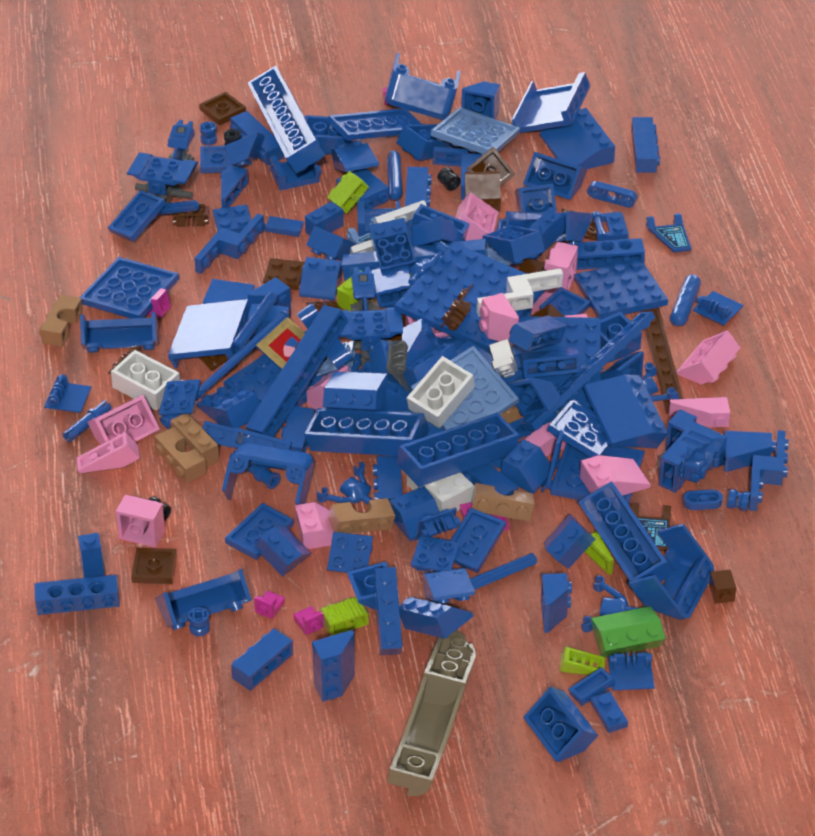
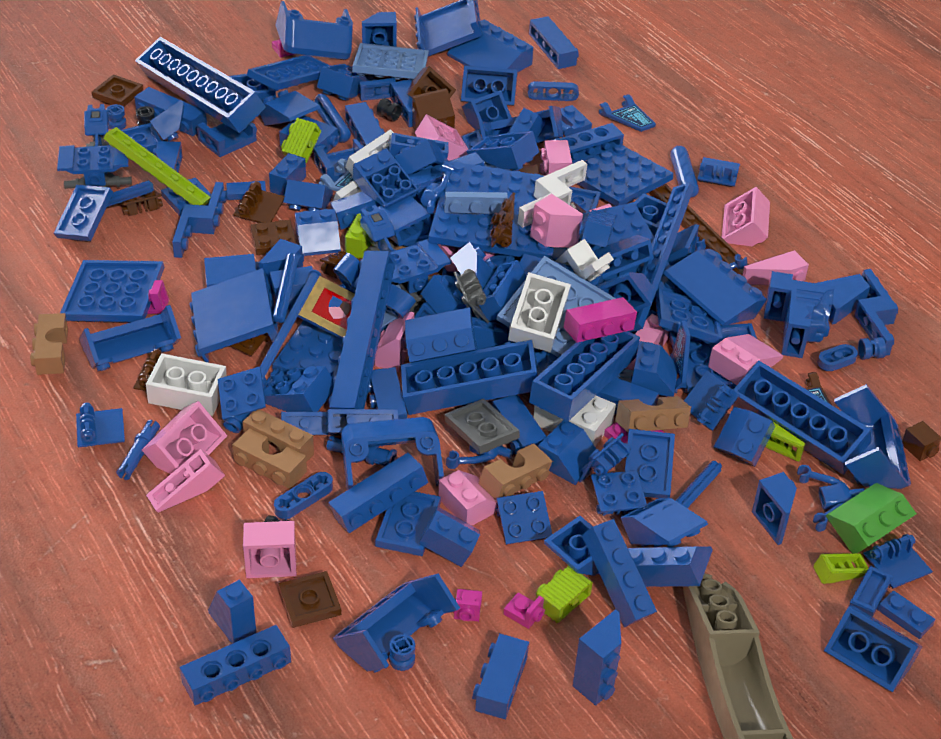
camera: 25 degrees left, 0 degrees up
(204, 482) = (299, 504): none -> blue beam
(209, 190) = (156, 167): none -> lime plate
(244, 502) = (378, 492): none -> blue brick
(285, 242) = (259, 204): none -> reddish brown hinge
(353, 473) = (482, 426): none -> dark grey plate
(445, 284) = (474, 202): none -> medium blue plate
(489, 411) = (600, 319): none -> dark pink brick
(560, 504) = (710, 400): none -> blue hinge

